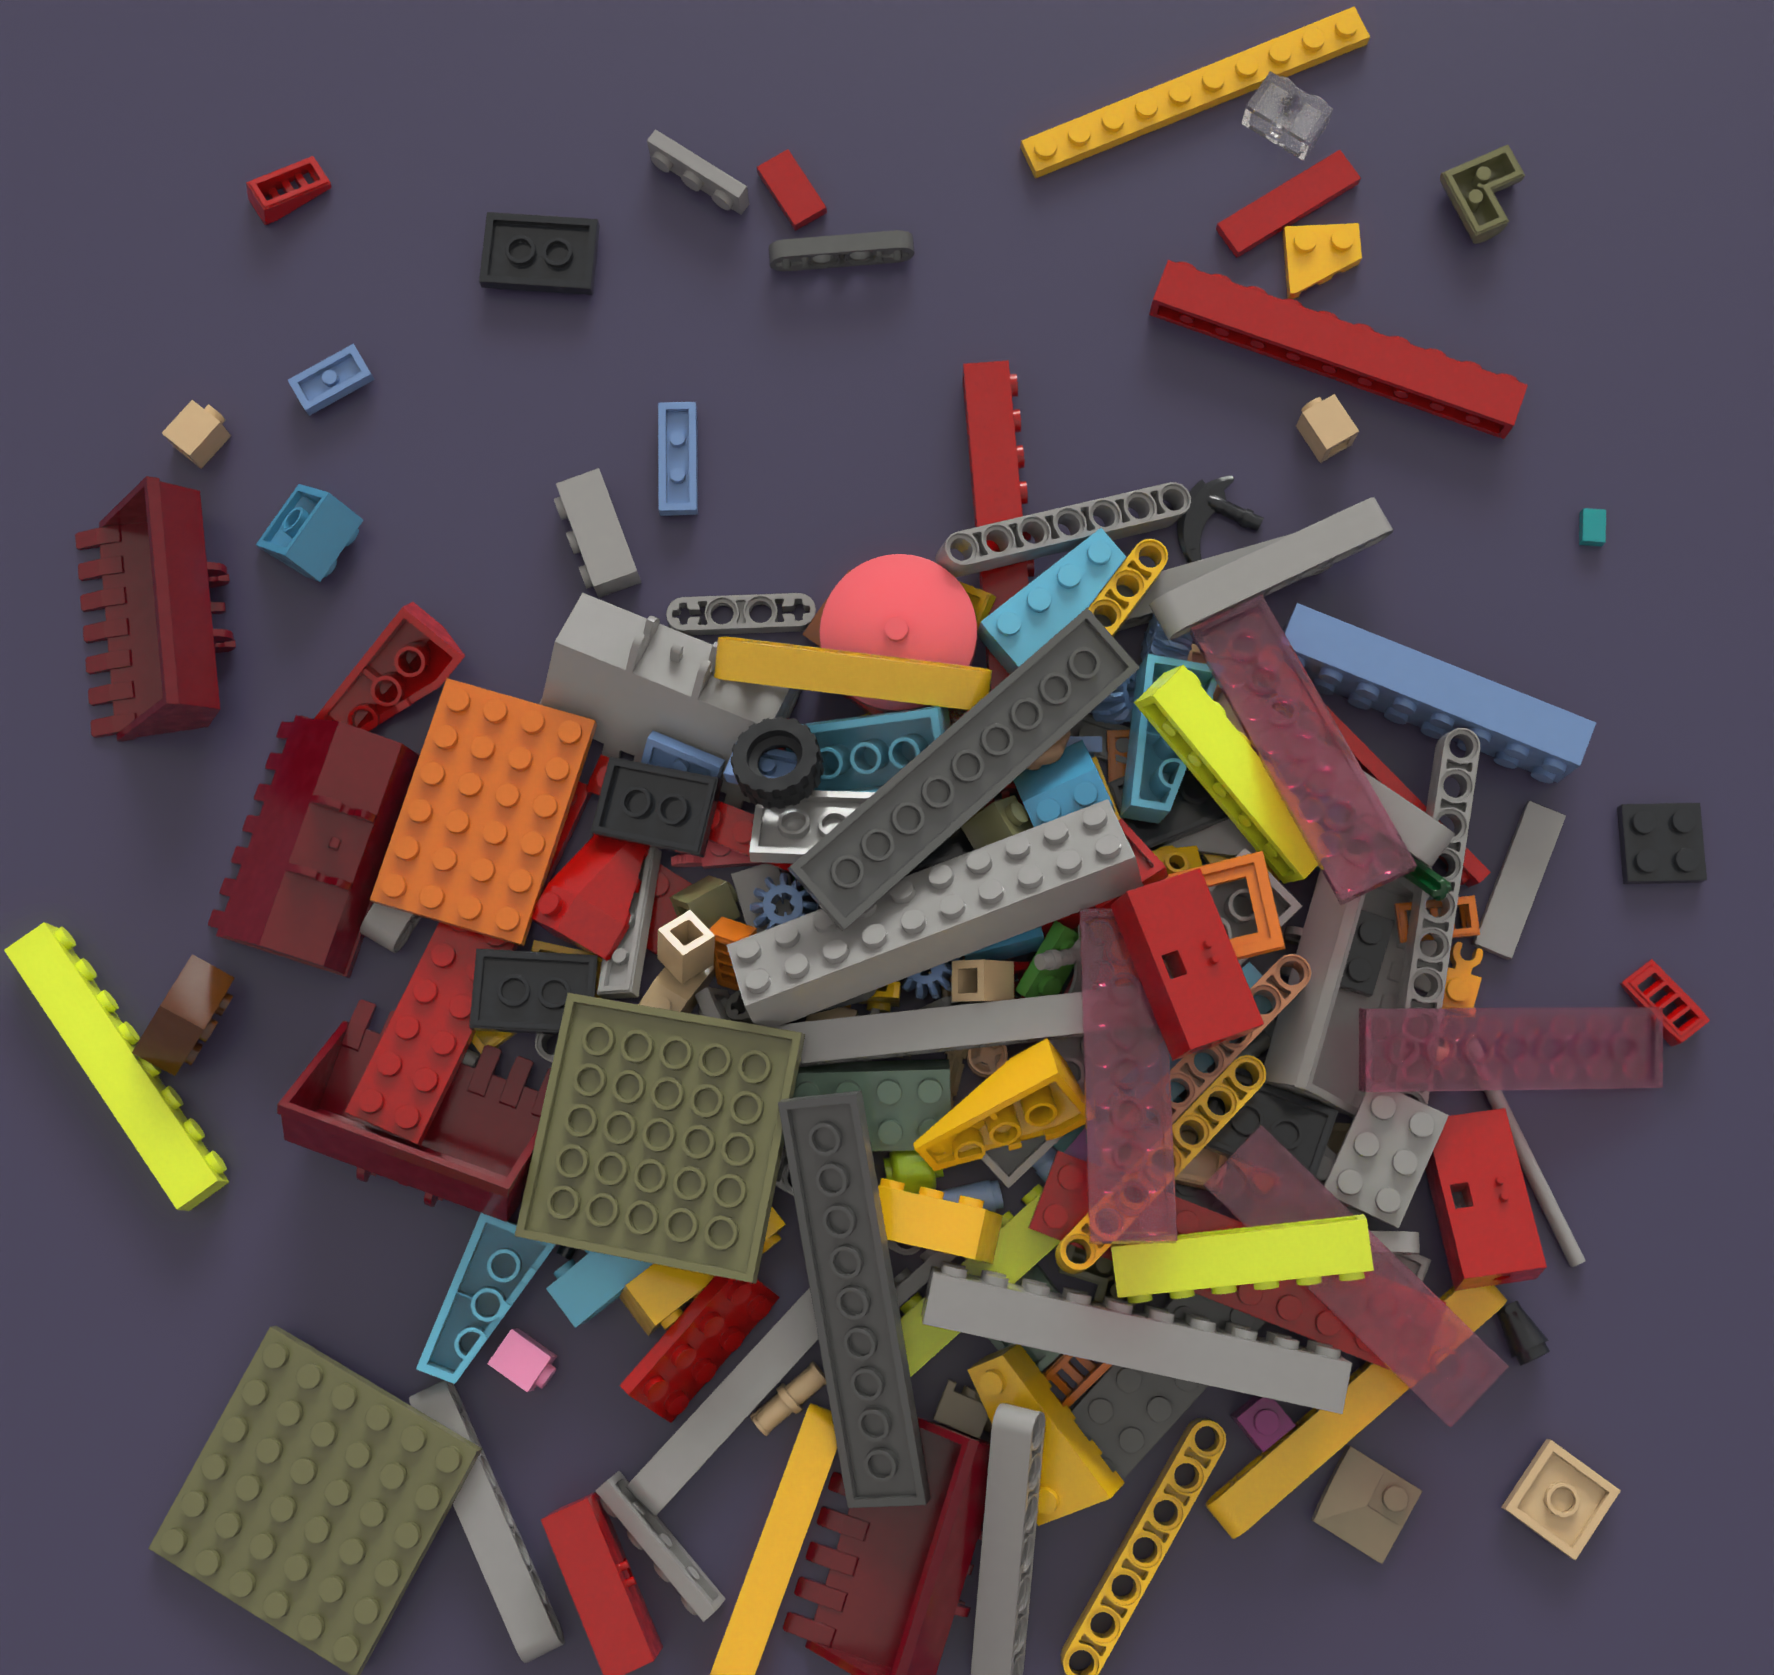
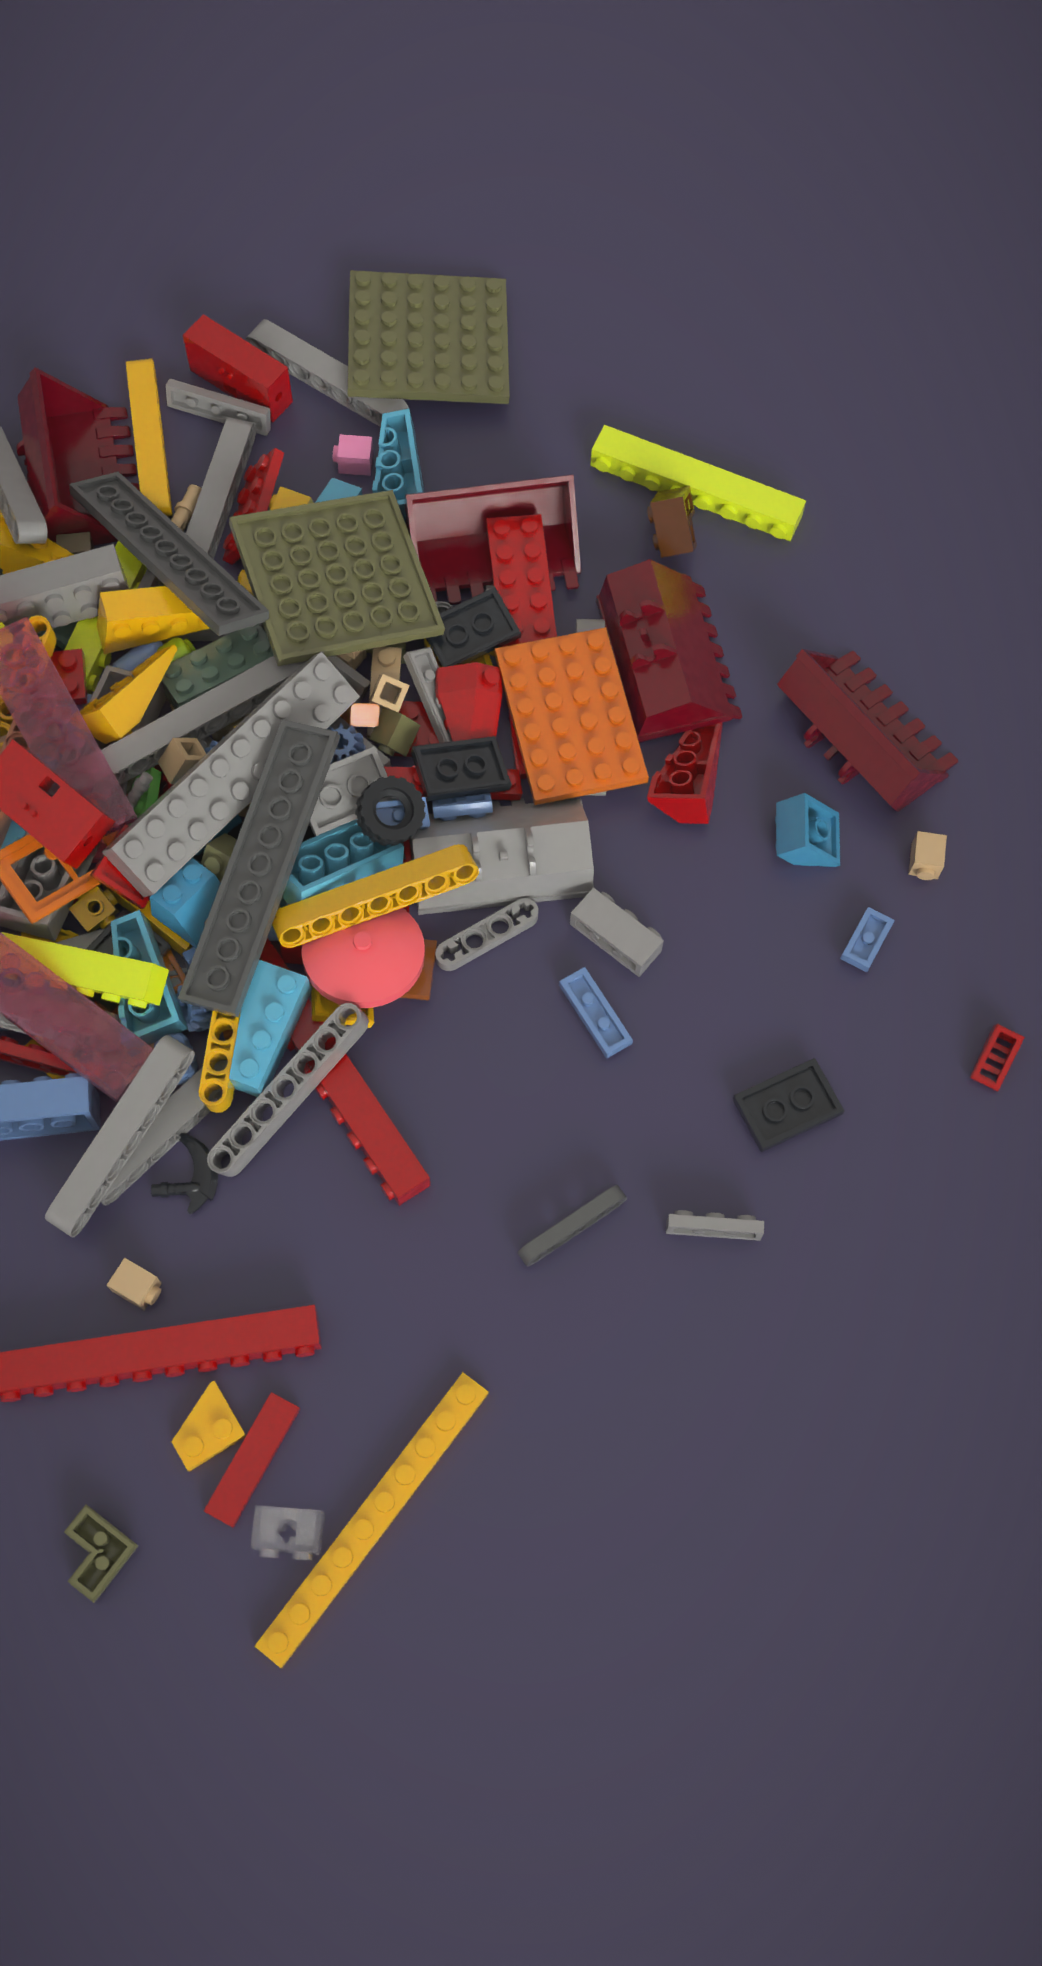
camera: 145 degrees right, 10 degrees down
(791, 190) = (639, 1257): red tile -> none

